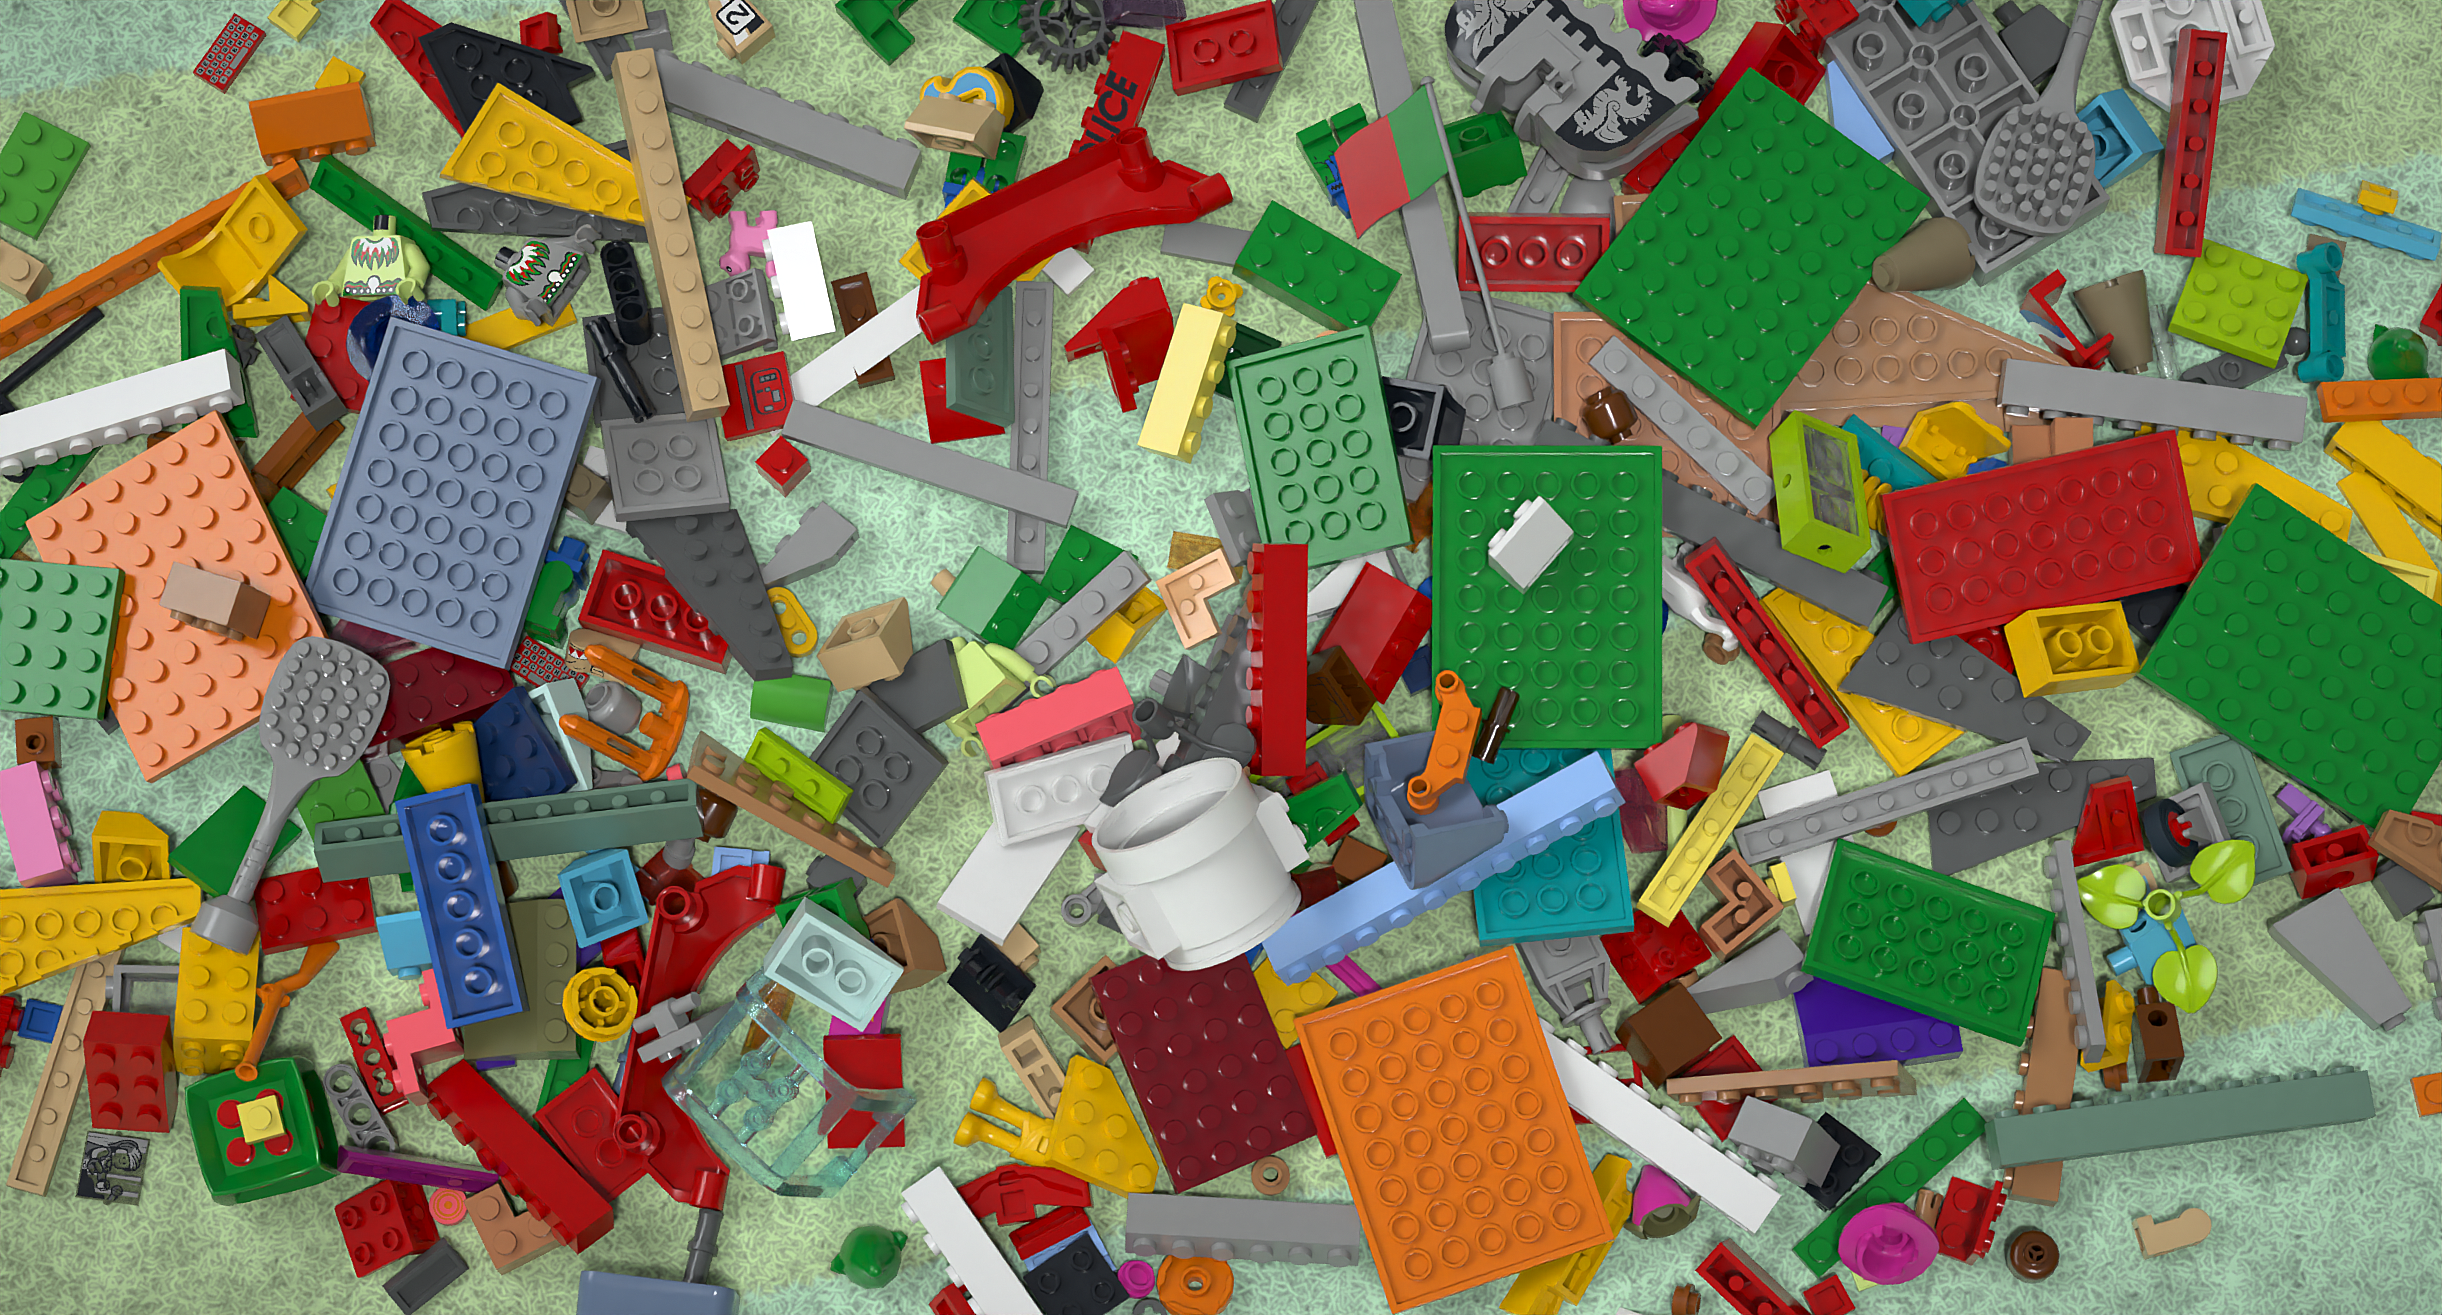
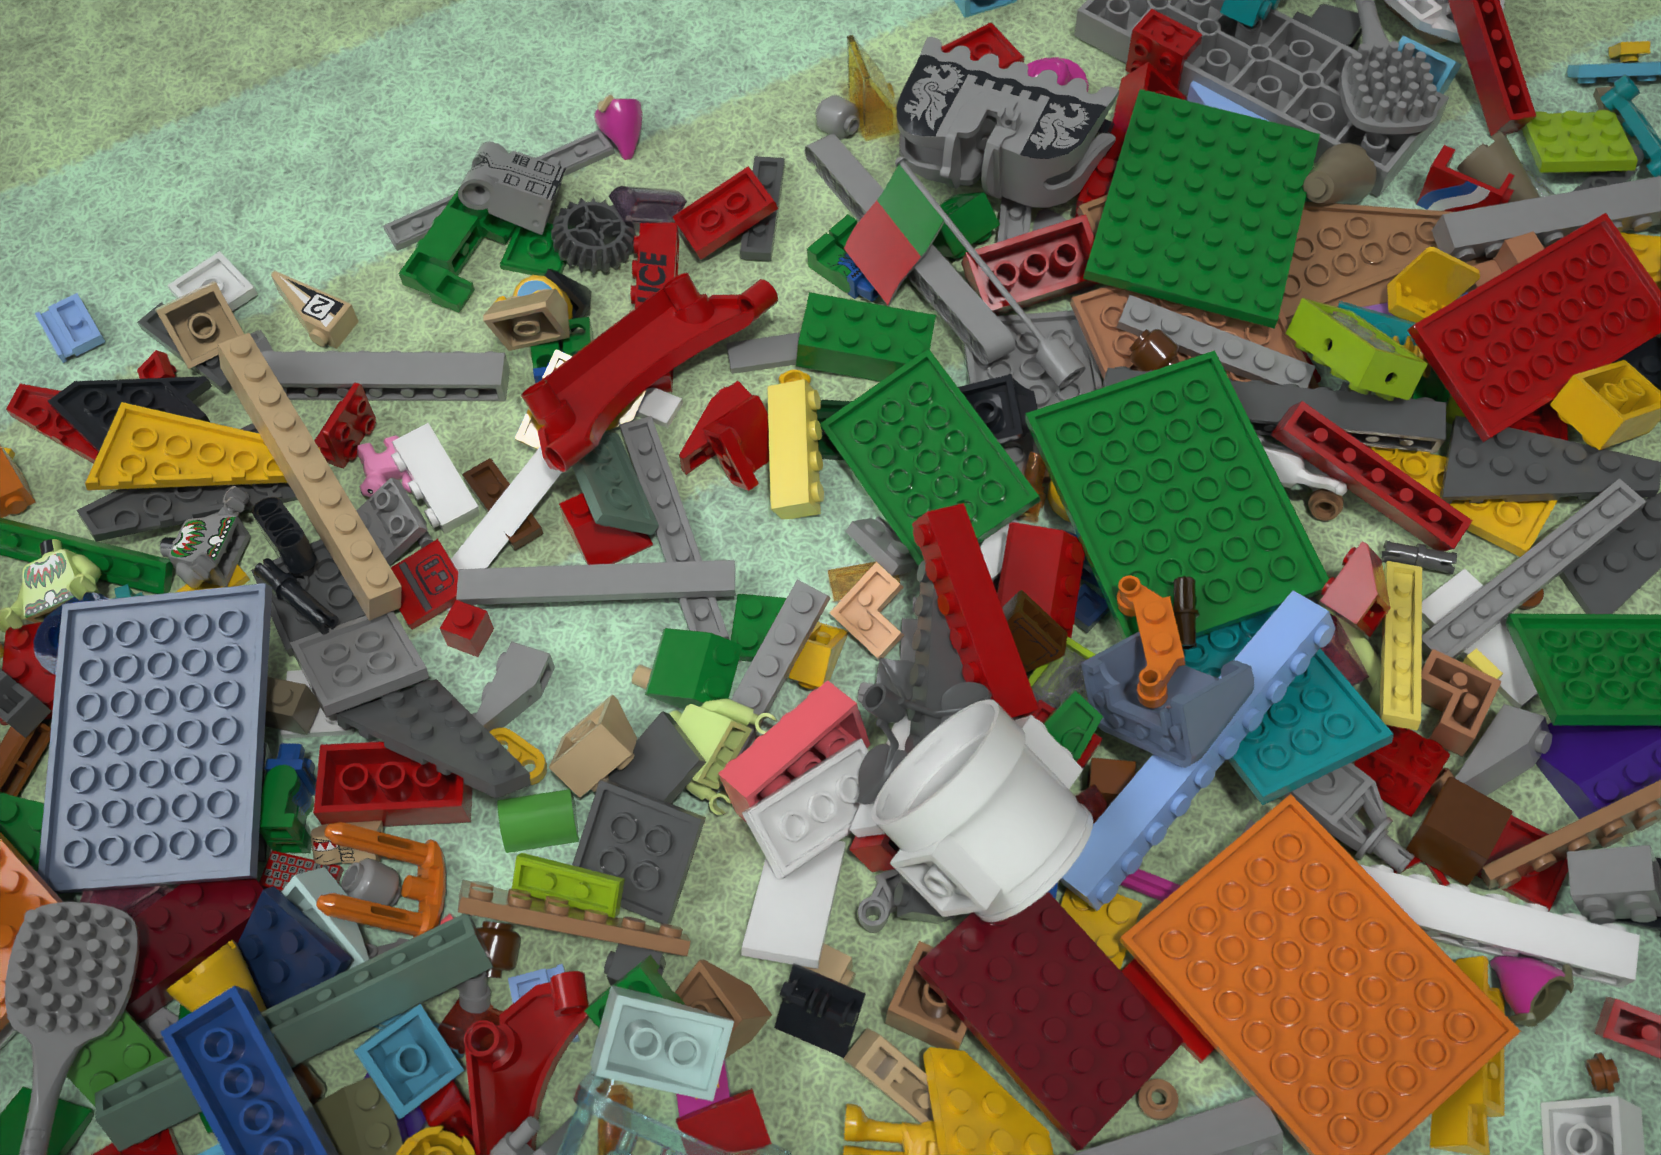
camera: 20 degrees left, 15 degrees down
(1529, 544) = (1146, 452): white slope -> none

